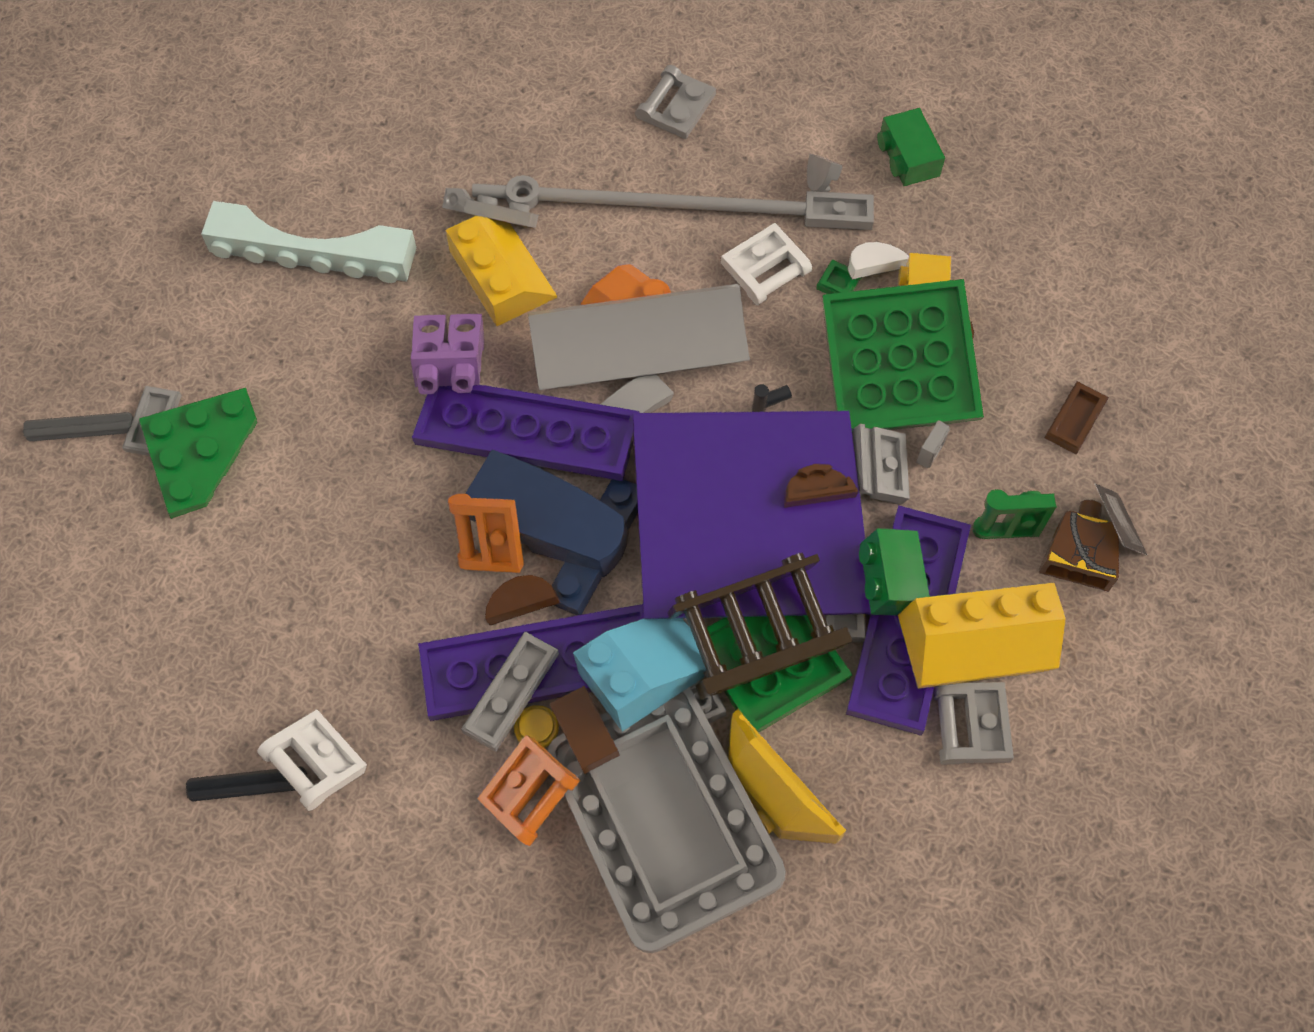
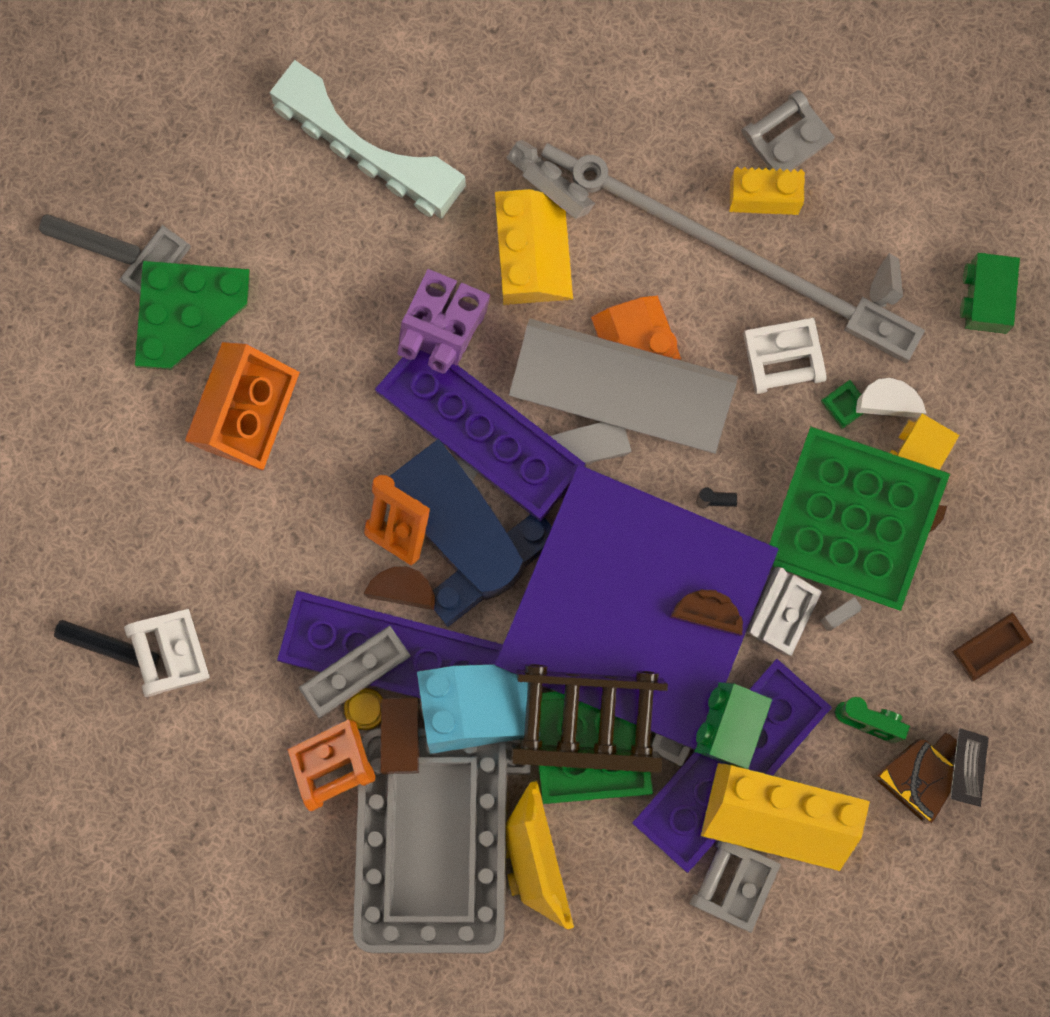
camera: 25 degrees right, 15 degrees up
(289, 503) = (242, 405): none -> orange slope
(682, 144) = (767, 191): none -> yellow brick

